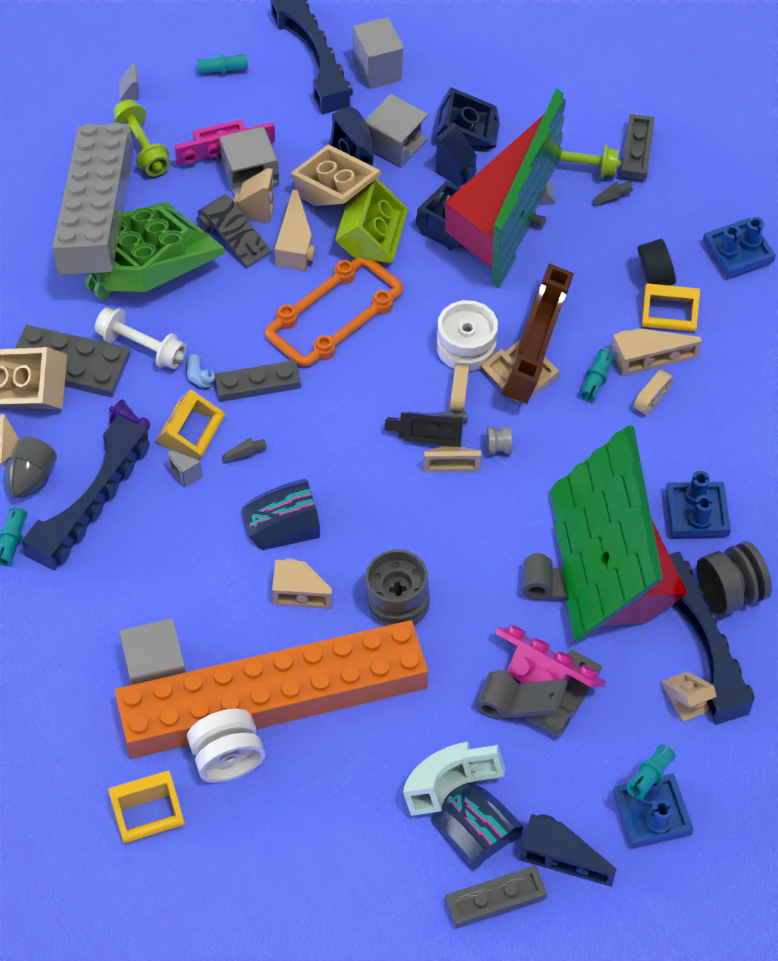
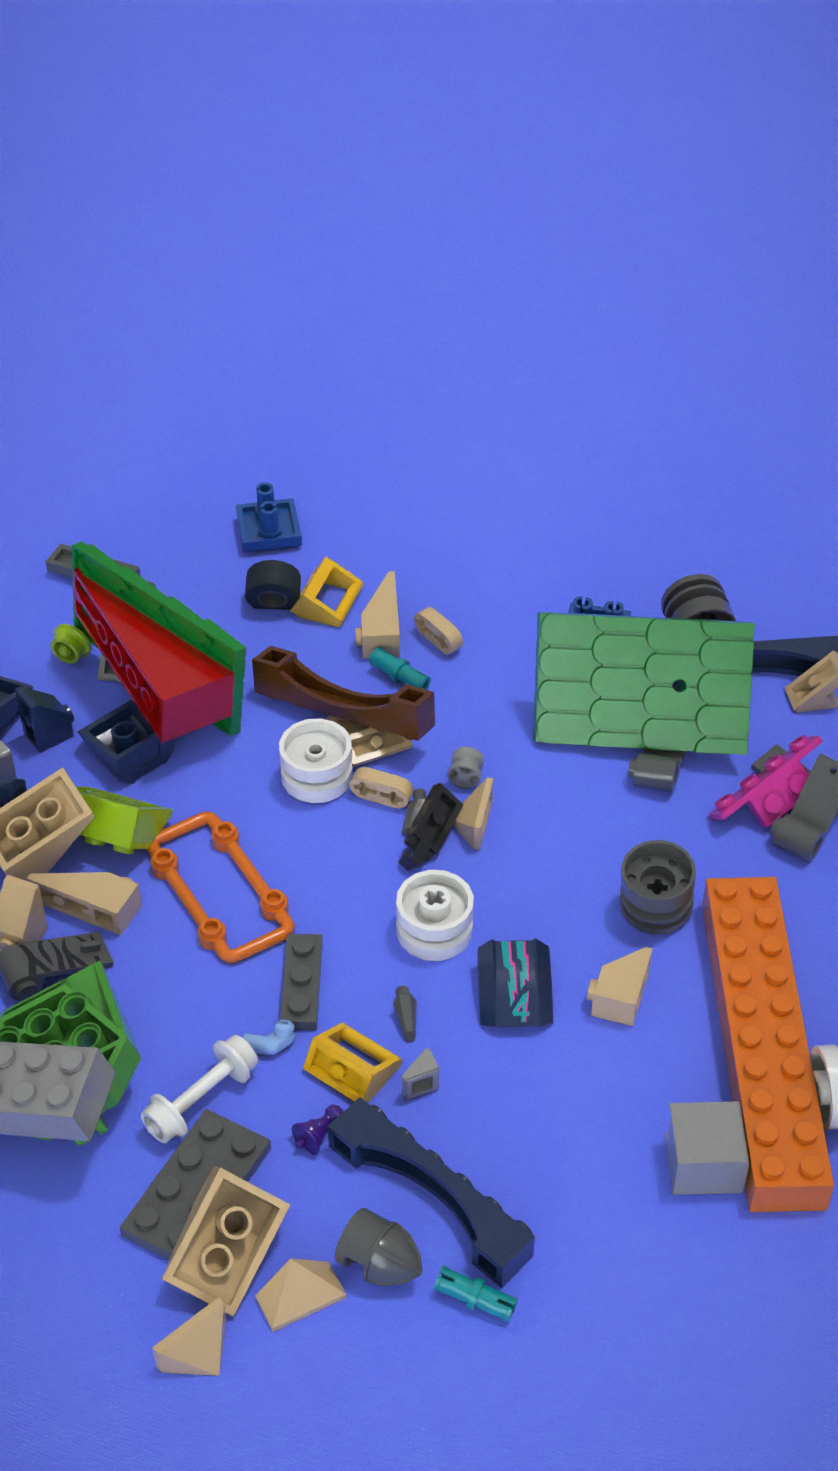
camera: 75 degrees left, 10 degrees down
(332, 445) = (434, 915): none -> white wheel

